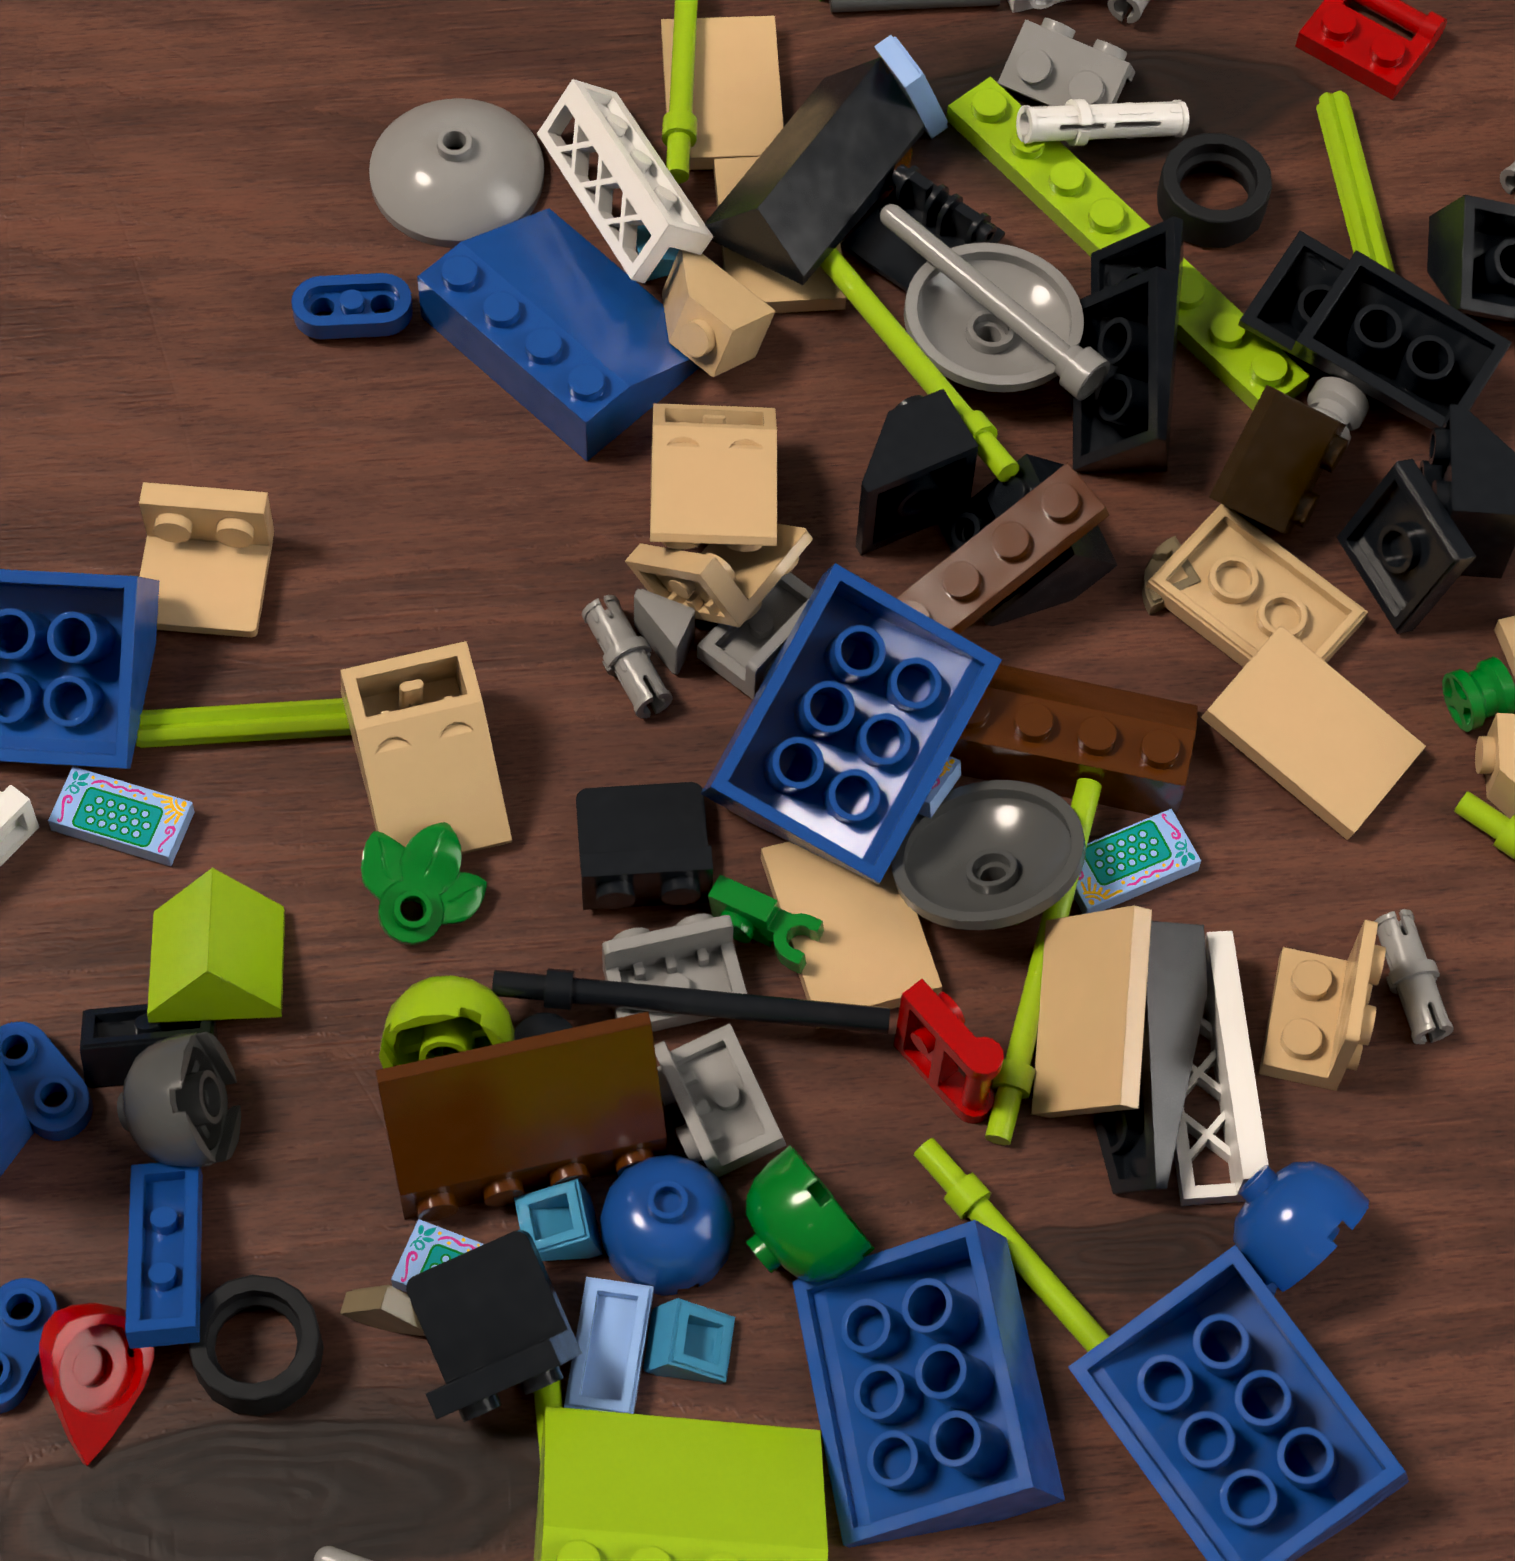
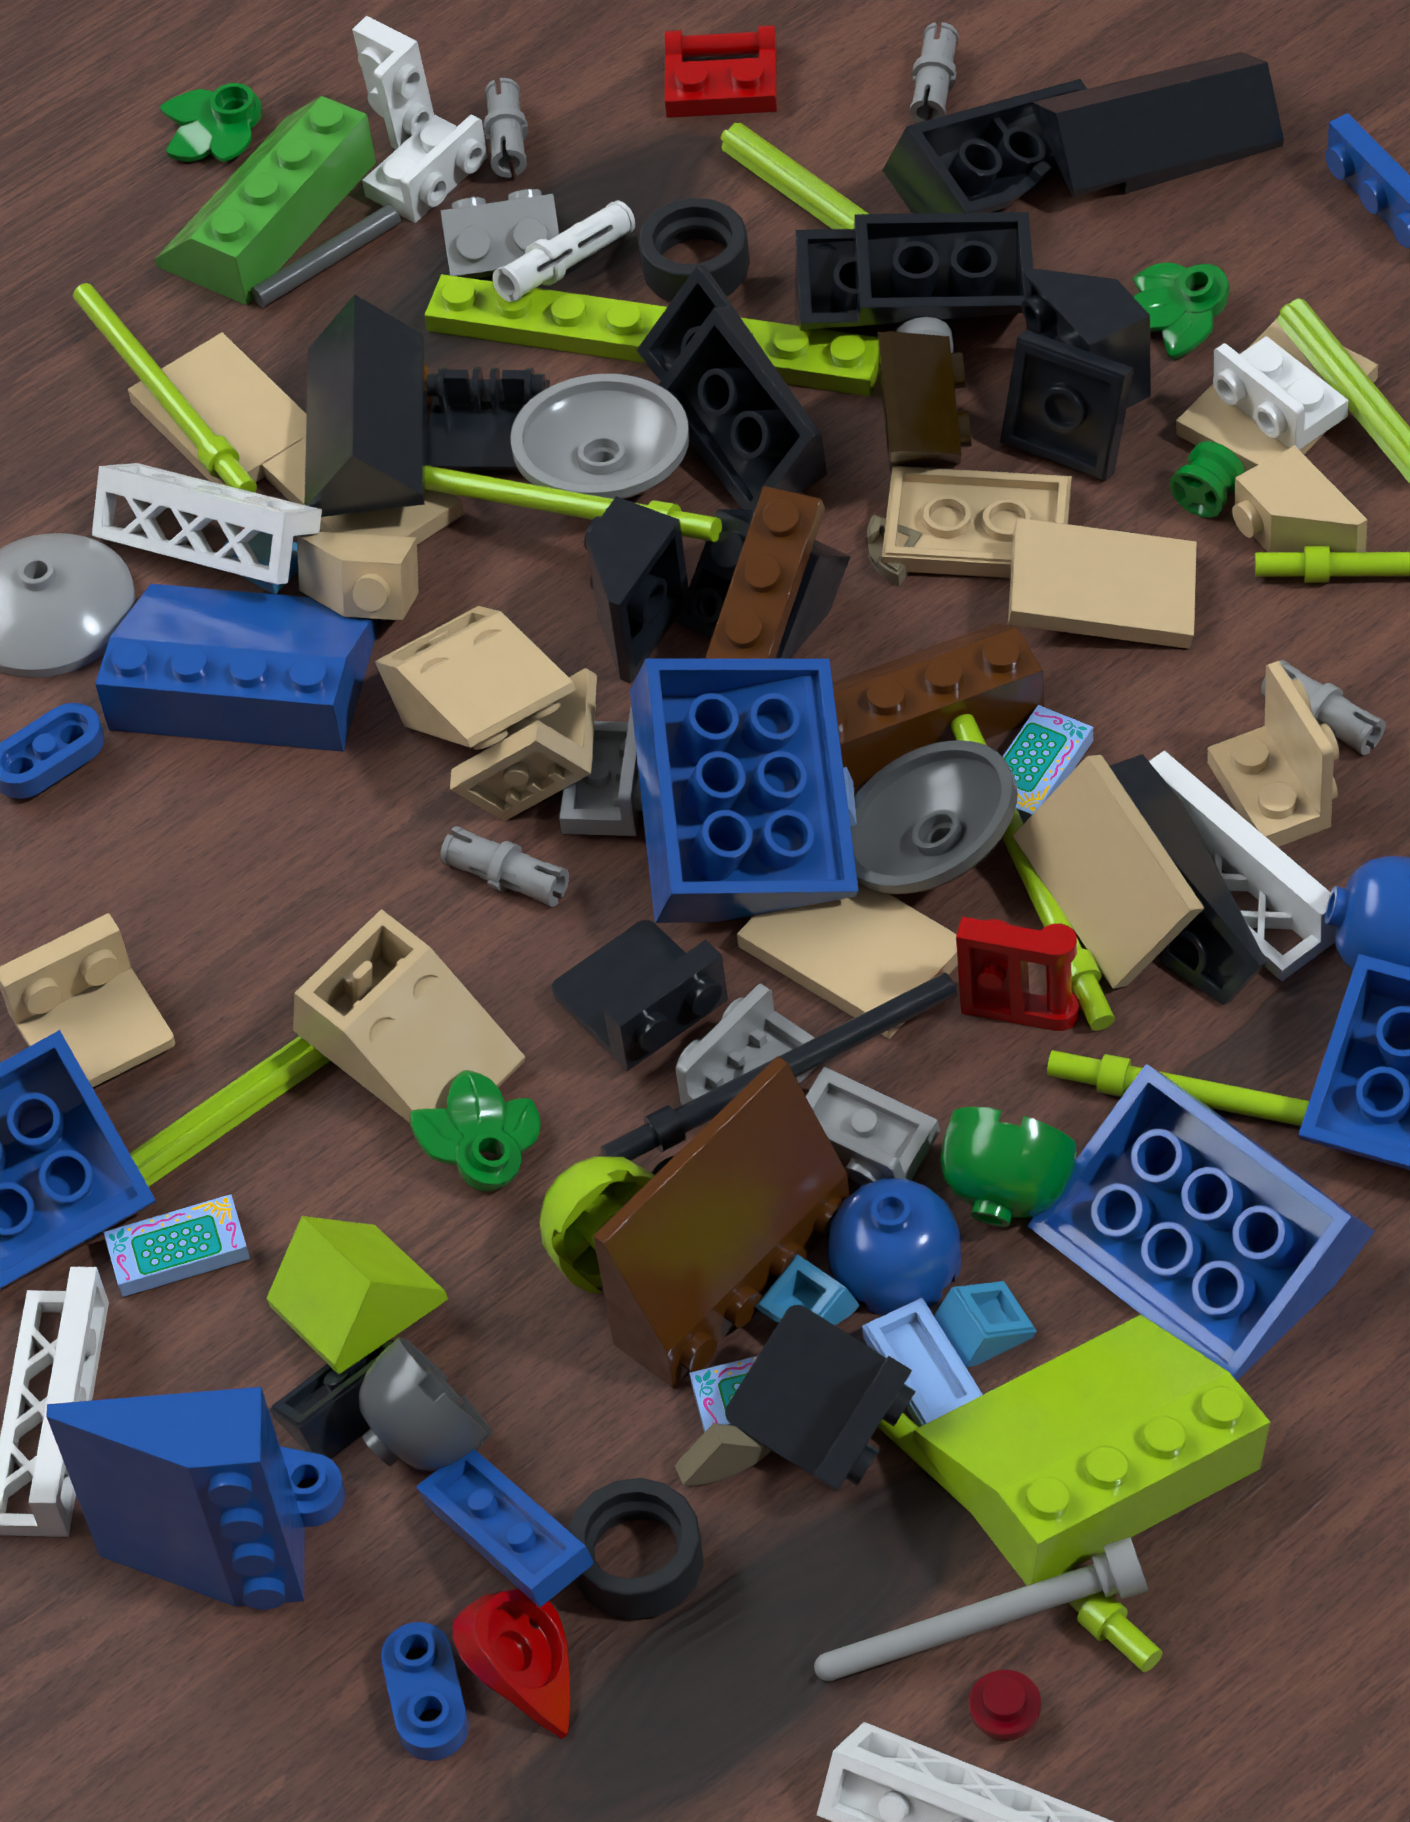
camera: 25 degrees left, 10 degrees down
(666, 626) = (520, 820): light grey slope -> none
(761, 919) = (789, 977): green plate -> none
(913, 84) = (390, 298): light blue tile -> none
(1079, 369) = (700, 429): light grey piece -> none

